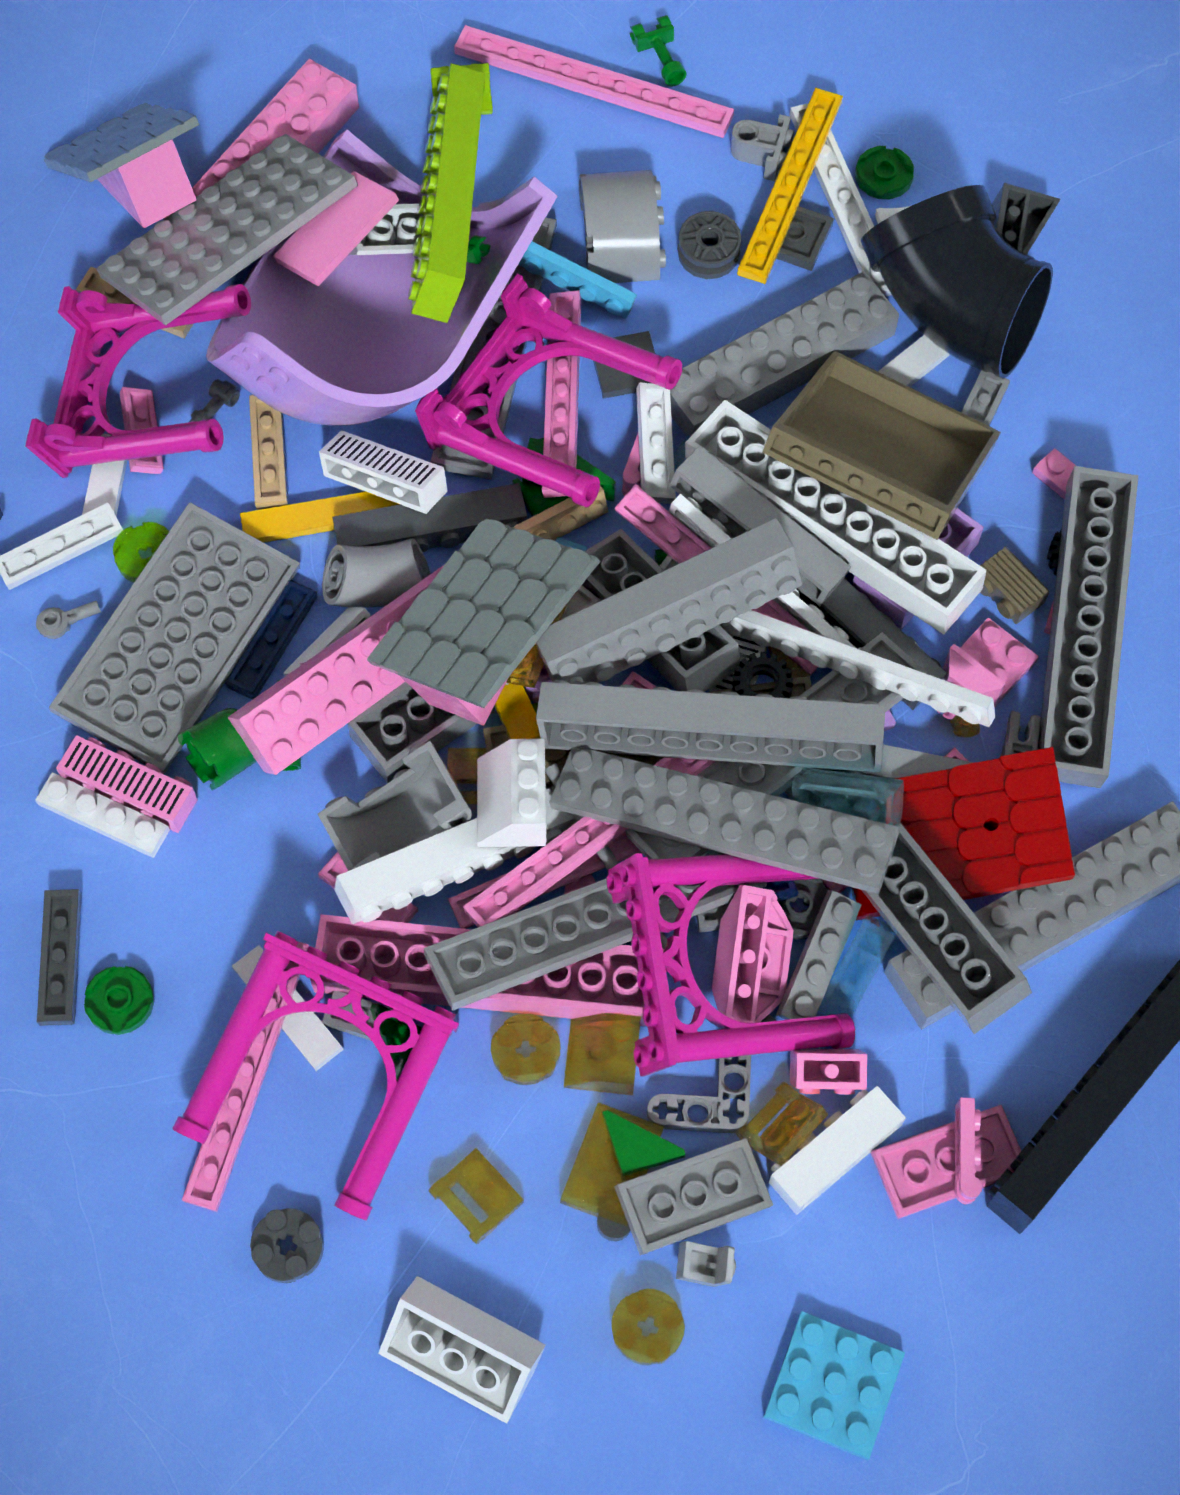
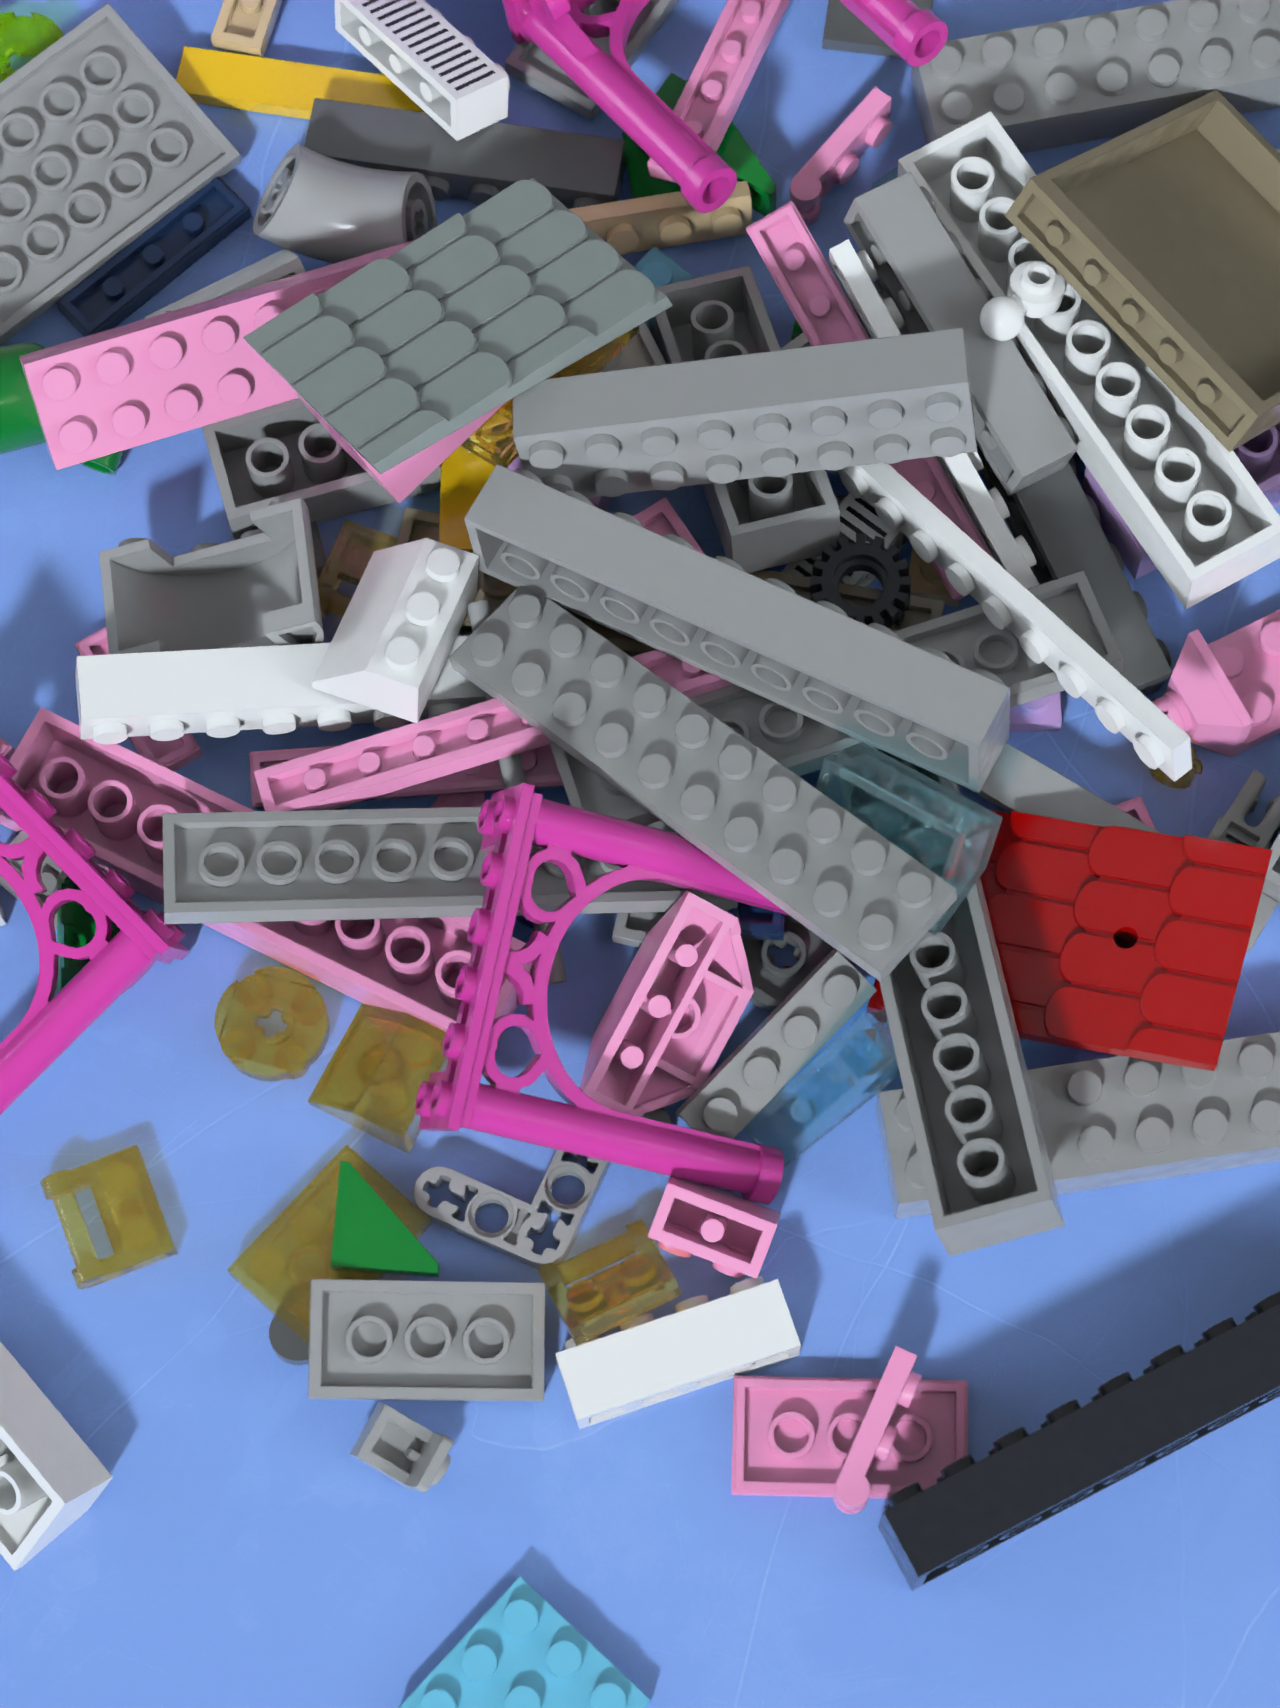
camera: 25 degrees right, 5 degrees up
(629, 1337) = (280, 1544): clear yellow plate -> none
(655, 441) = (861, 141): white plate -> none
(792, 489) = (1032, 292): none -> white plate

